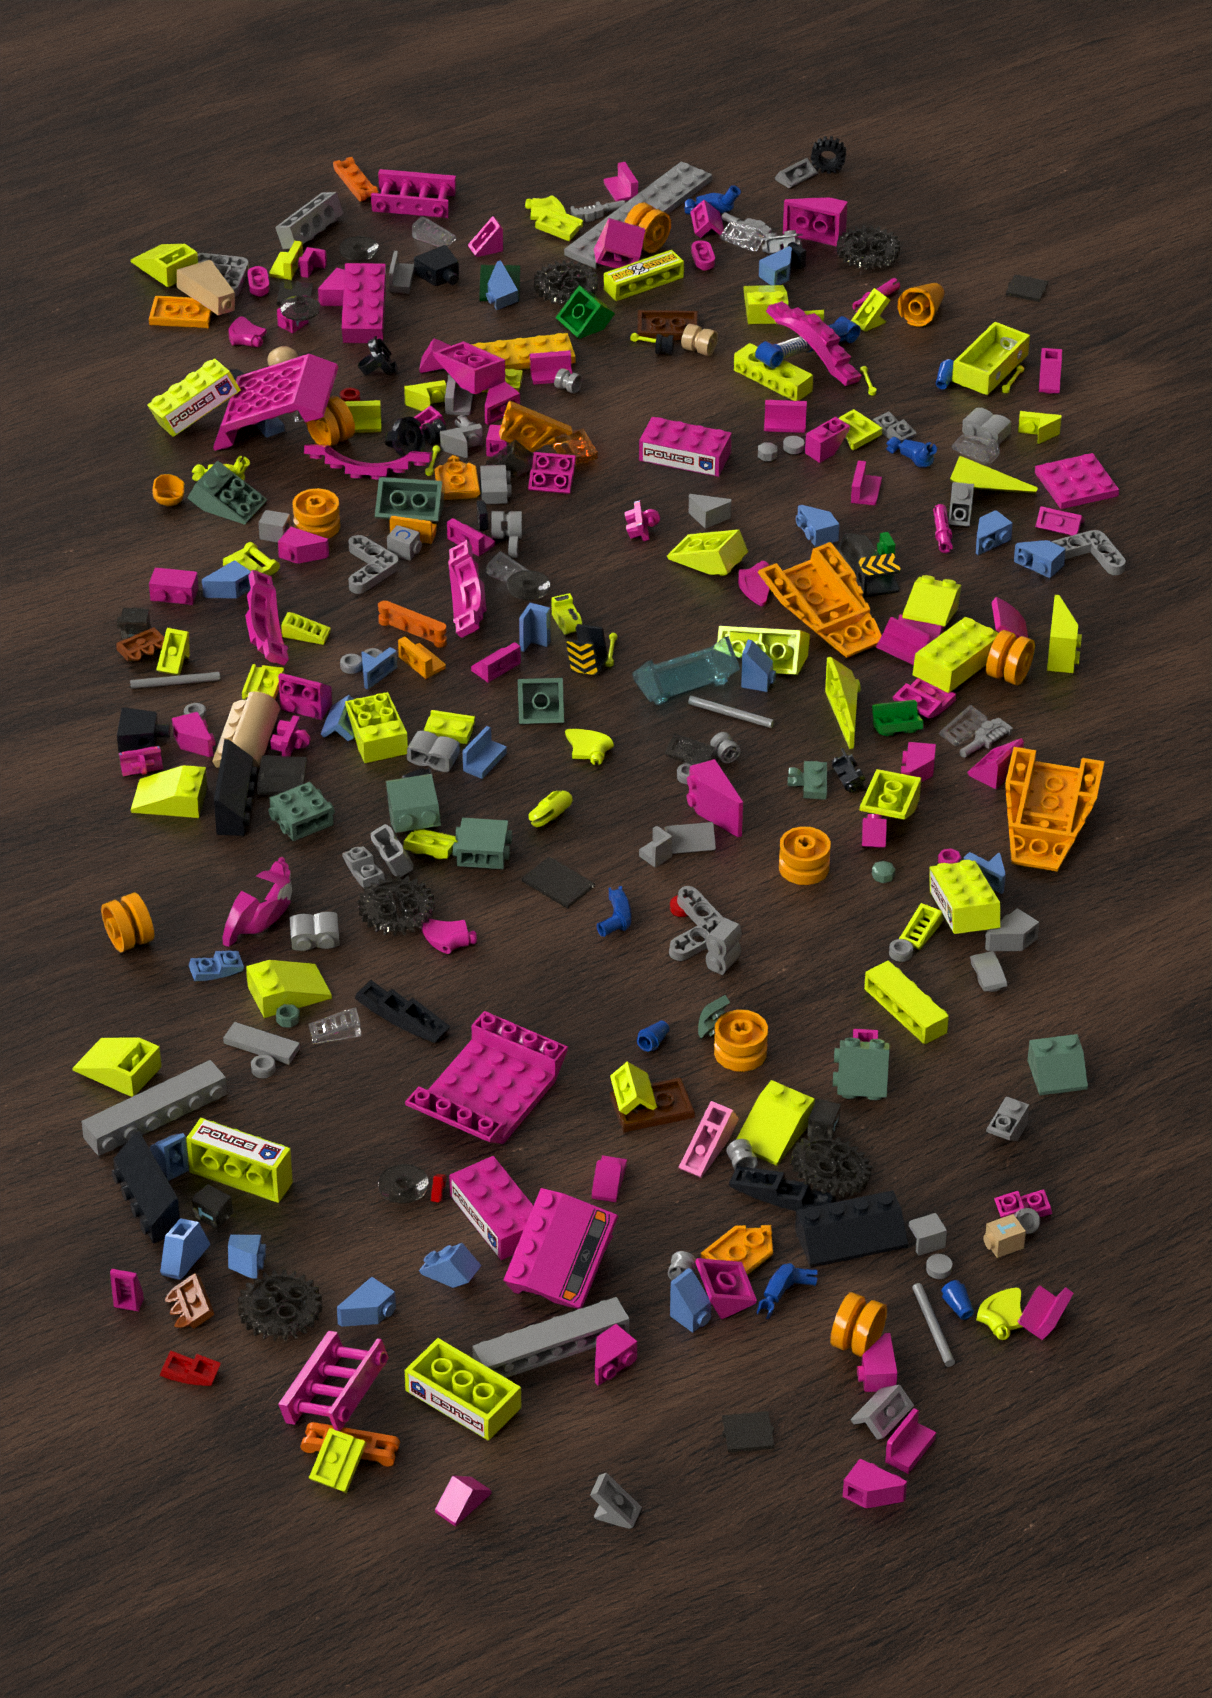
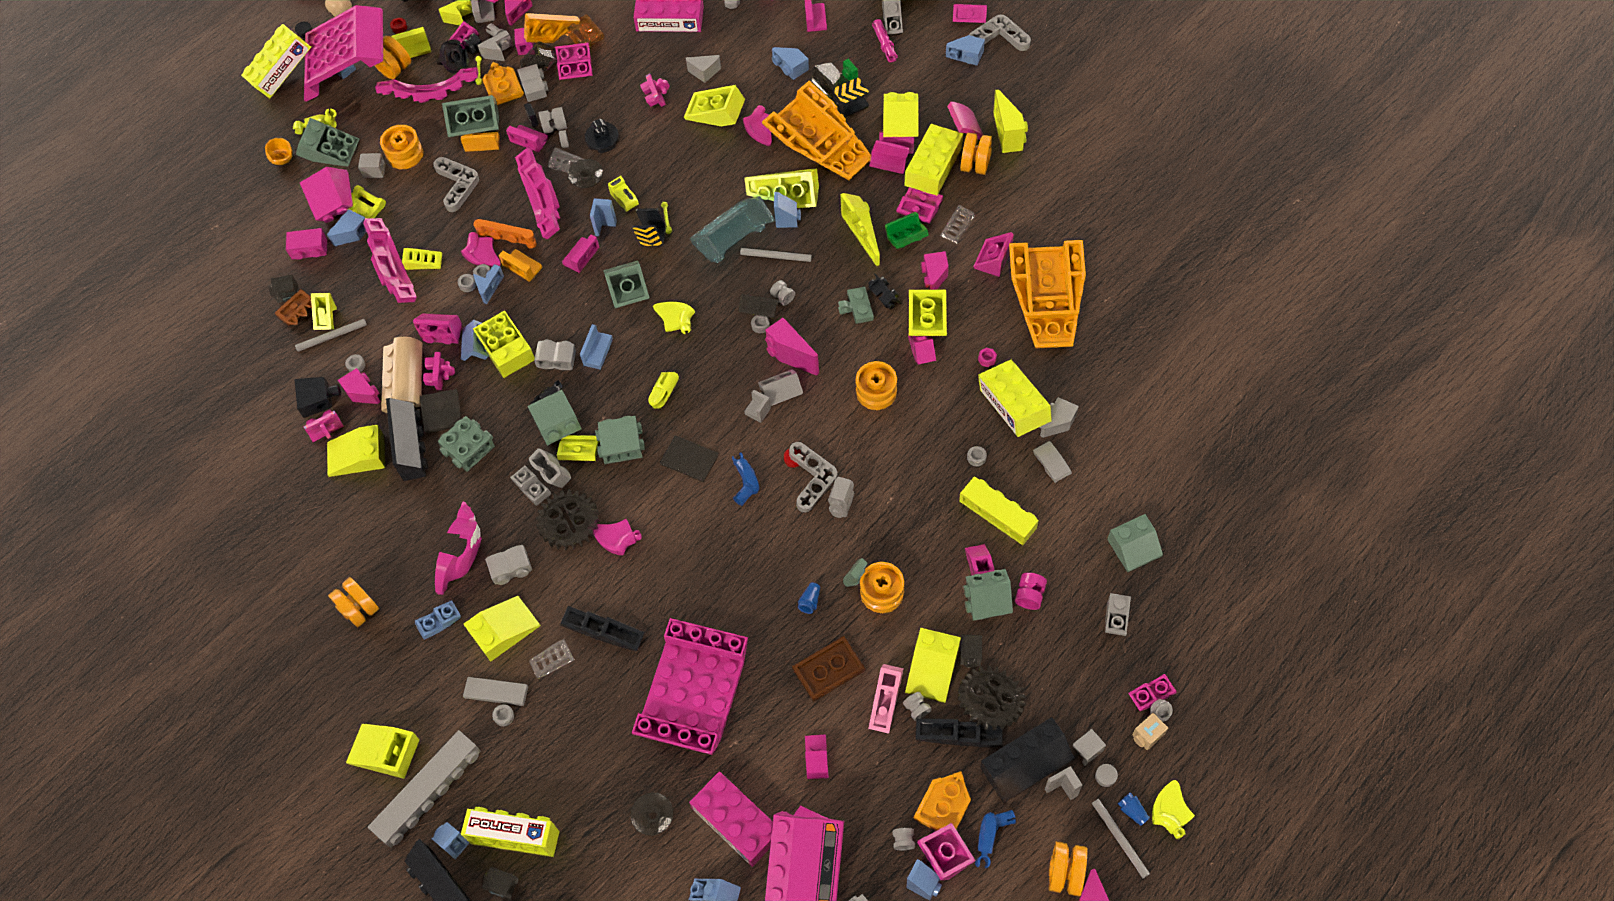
camera: 10 degrees left, 20 degrees up
(215, 538) = (328, 193): none -> dark pink slope
(263, 680) = (401, 321): neon yellow plate -> none
(287, 1015) = (509, 657): sand green tile -> none
(302, 546) = (398, 180): dark pink slope -> none
(376, 634) = (480, 250): none -> dark pink arm
(404, 542) = (477, 156): light grey brick -> none
(439, 1182) = (680, 806): red tile -> none
(450, 725) = (561, 326): neon yellow plate -> none
(560, 554) = (601, 136): none -> black tile
(632, 1088) = (811, 663): neon yellow panel -> none
(883, 871) = (940, 382): sand green tile -> none
(883, 1249) = (1068, 781): none -> light grey panel
(915, 1081) = (1030, 591): none -> dark pink wheel
(923, 911) = (991, 416): neon yellow slope -> none
(986, 735) = (977, 228): light grey piece -> none
(992, 531) = (923, 34): medium blue slope -> none
(992, 870) = (1025, 363): medium blue slope -> none
(1044, 1311) = (1207, 802): dark pink panel -> none

